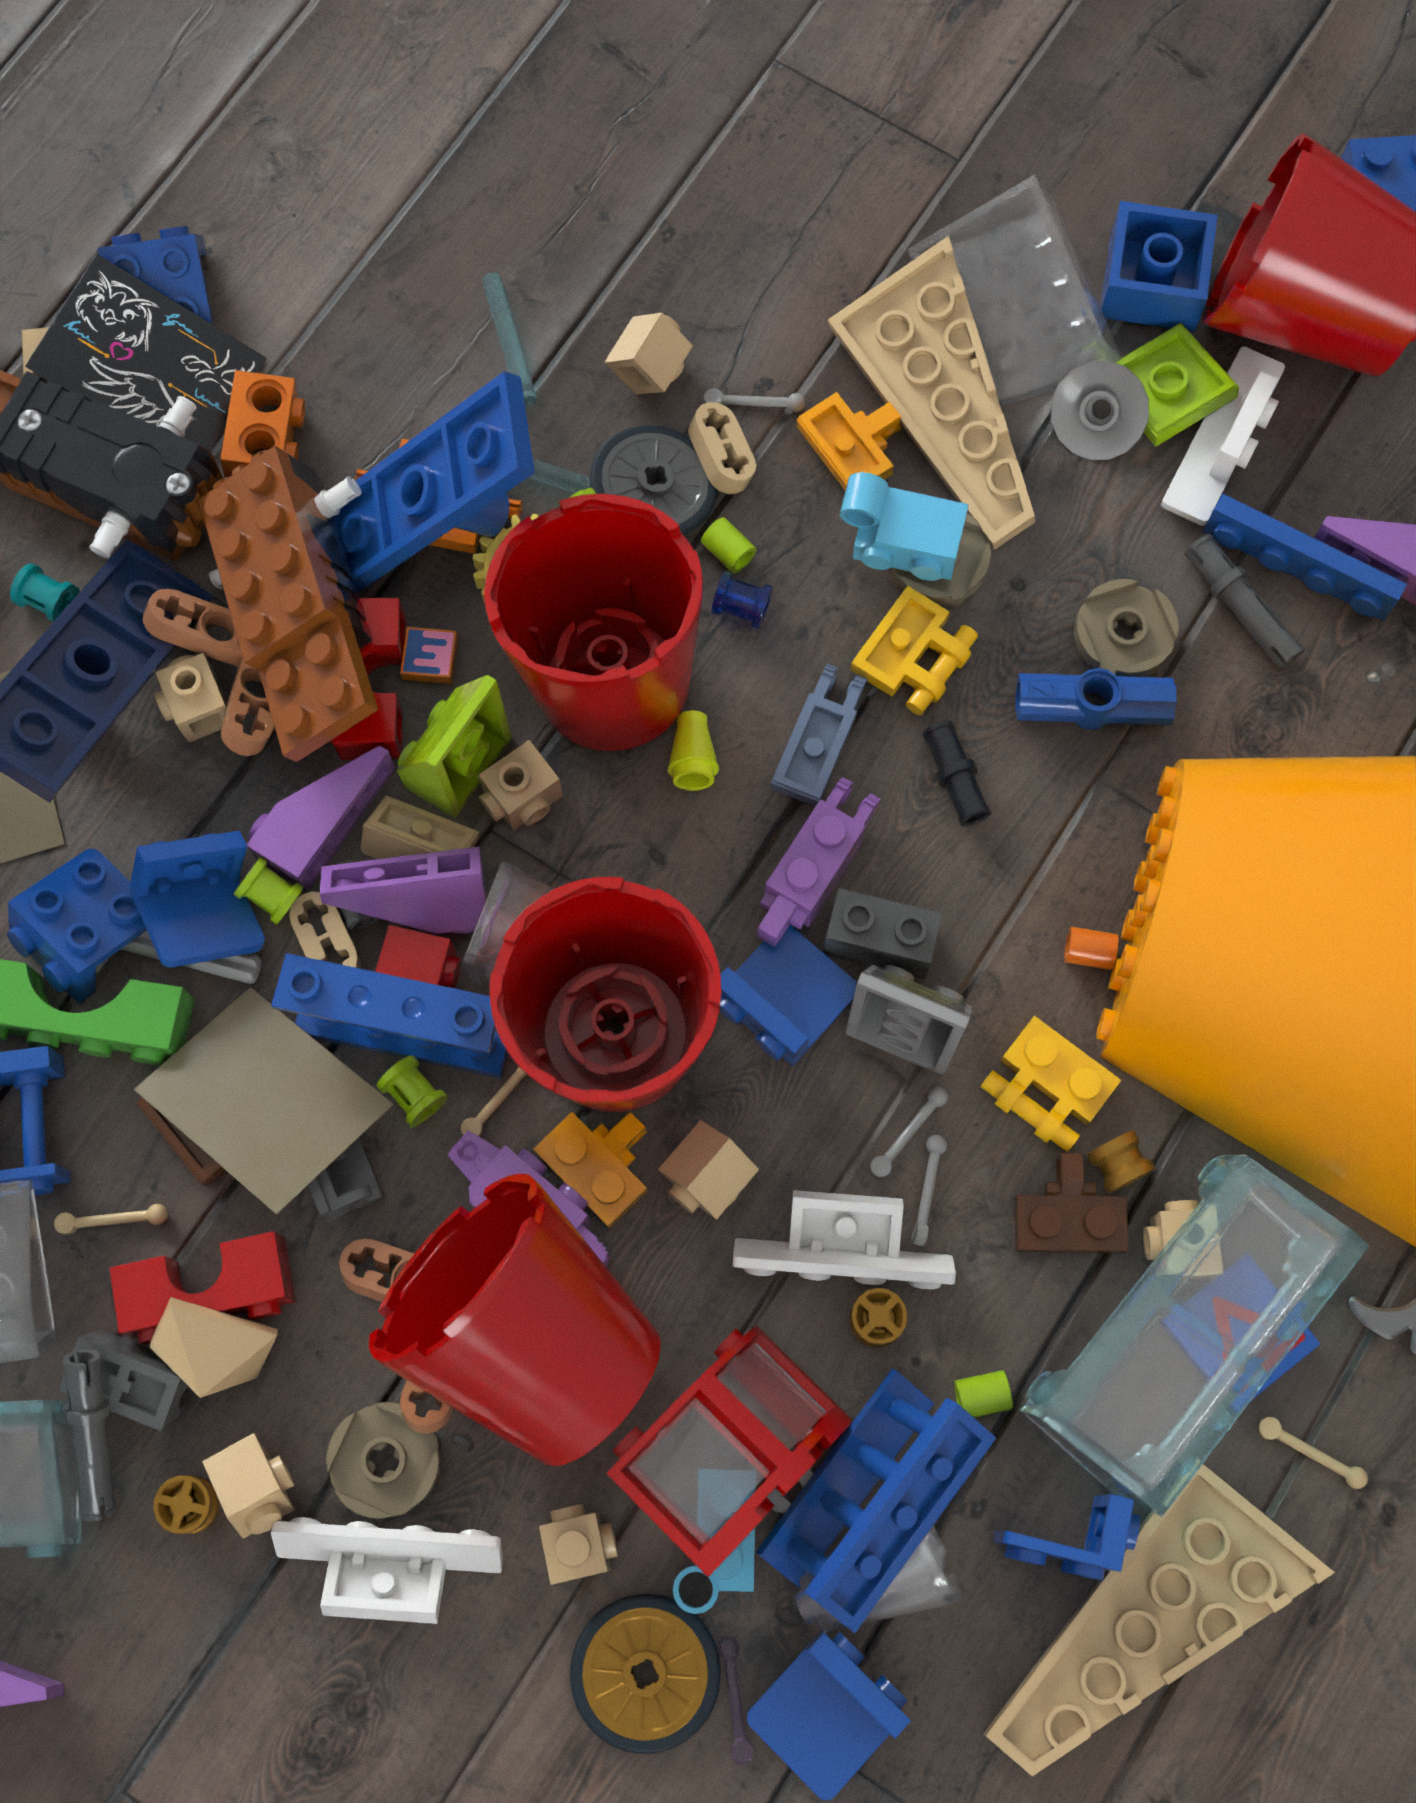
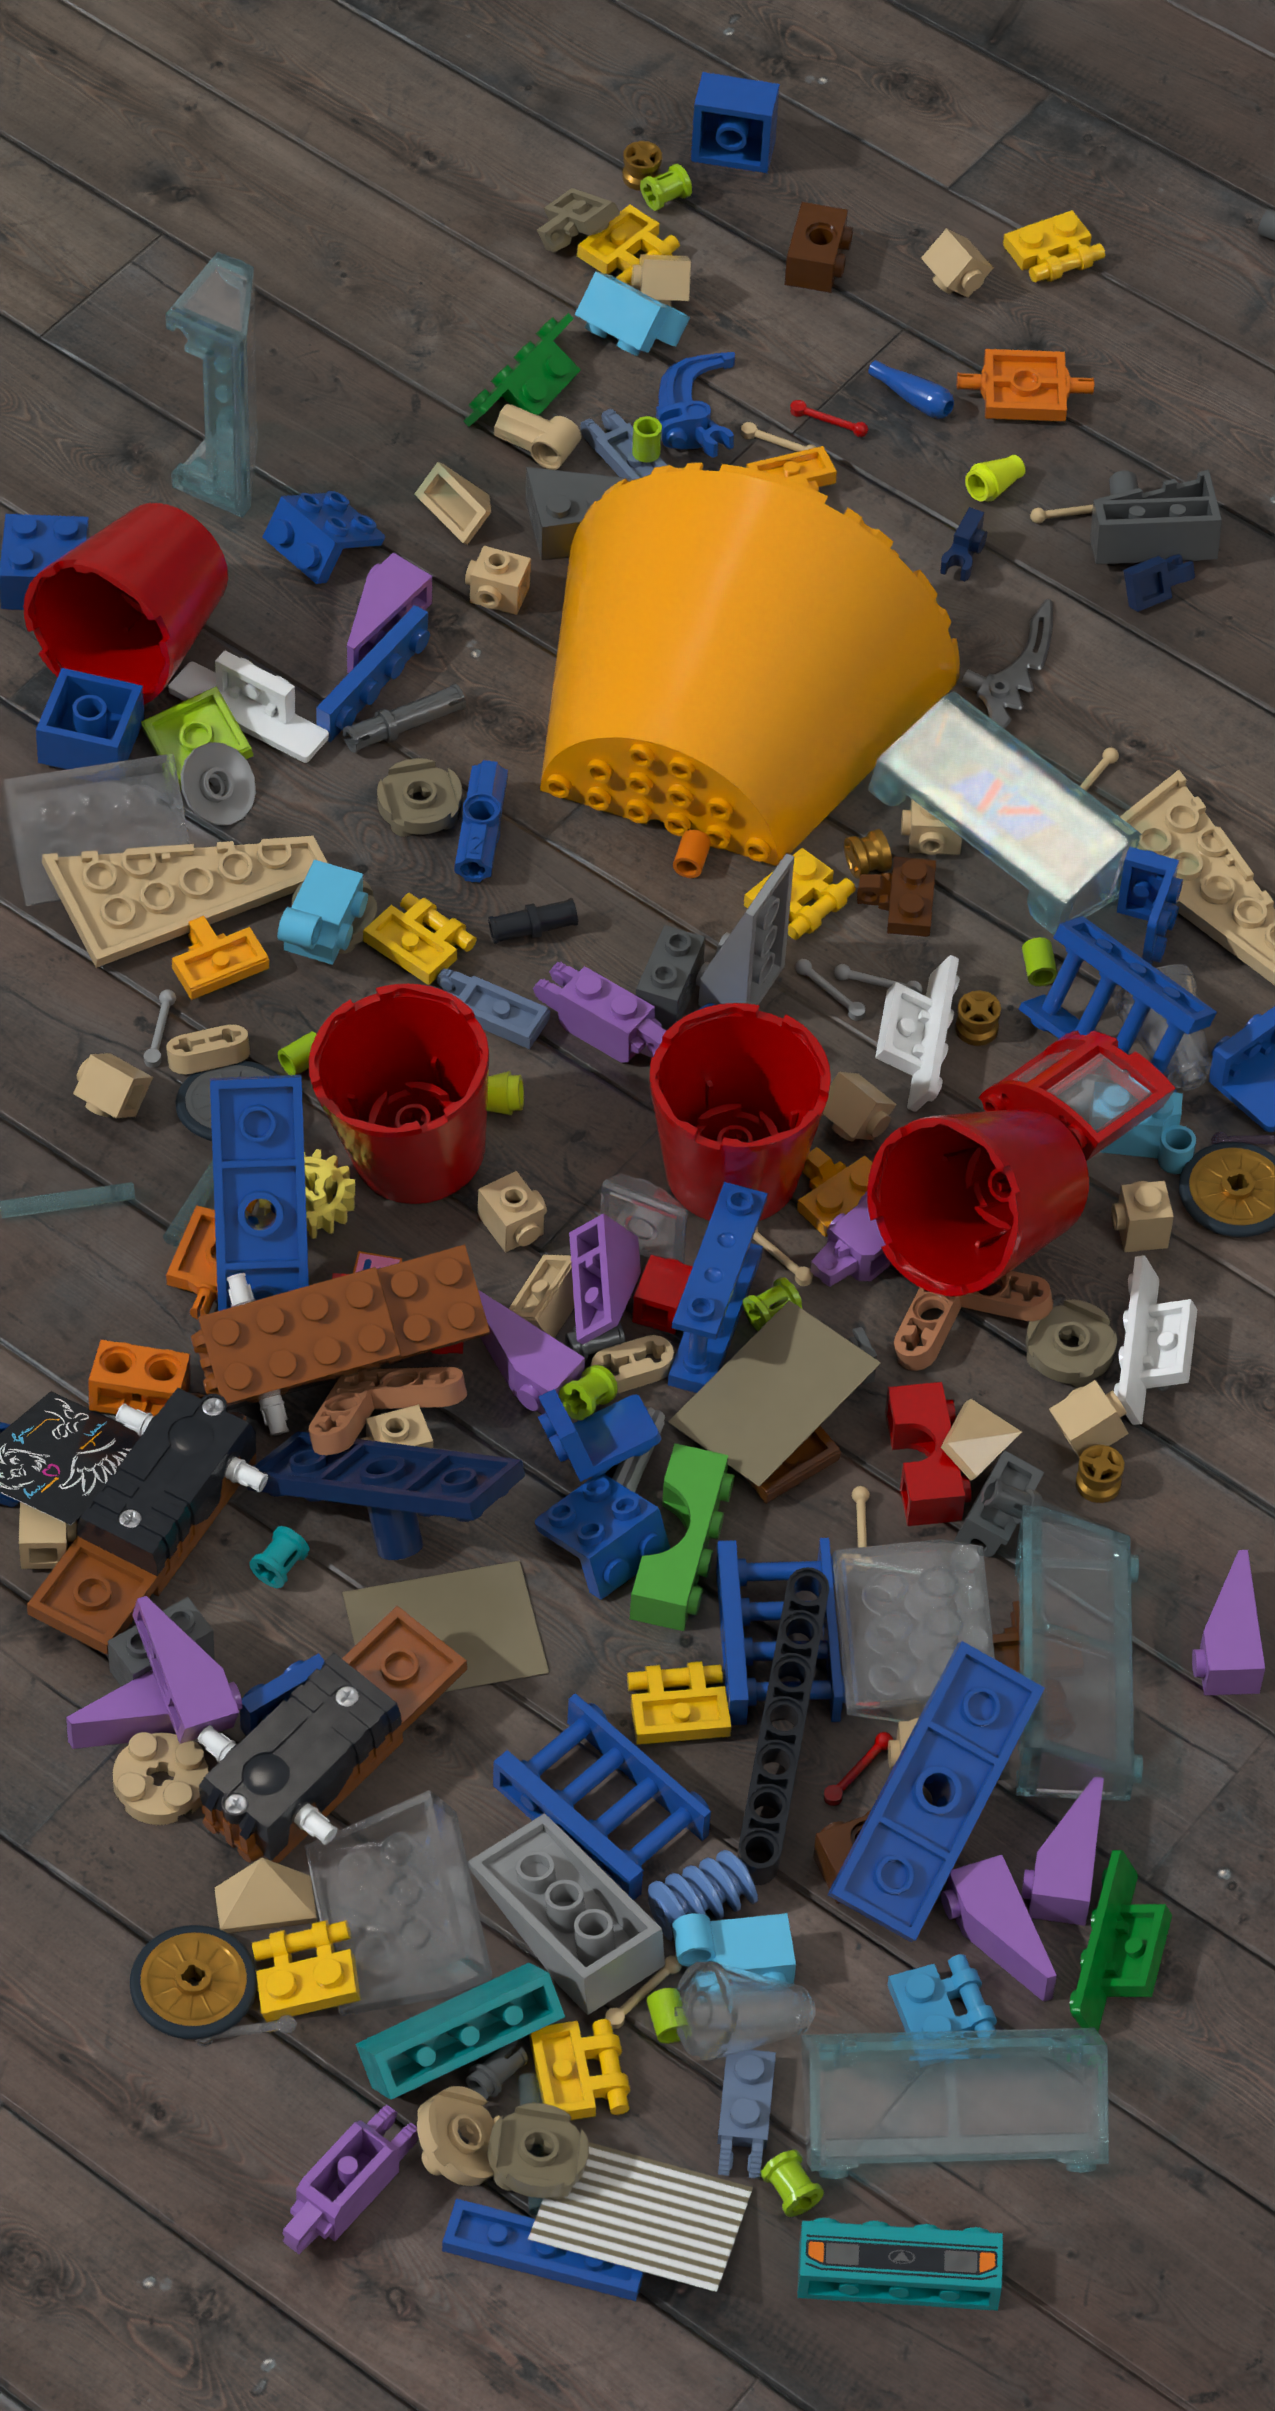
camera: 90 degrees left, 20 degrees down
(457, 746) = (489, 1218): lime slope -> none

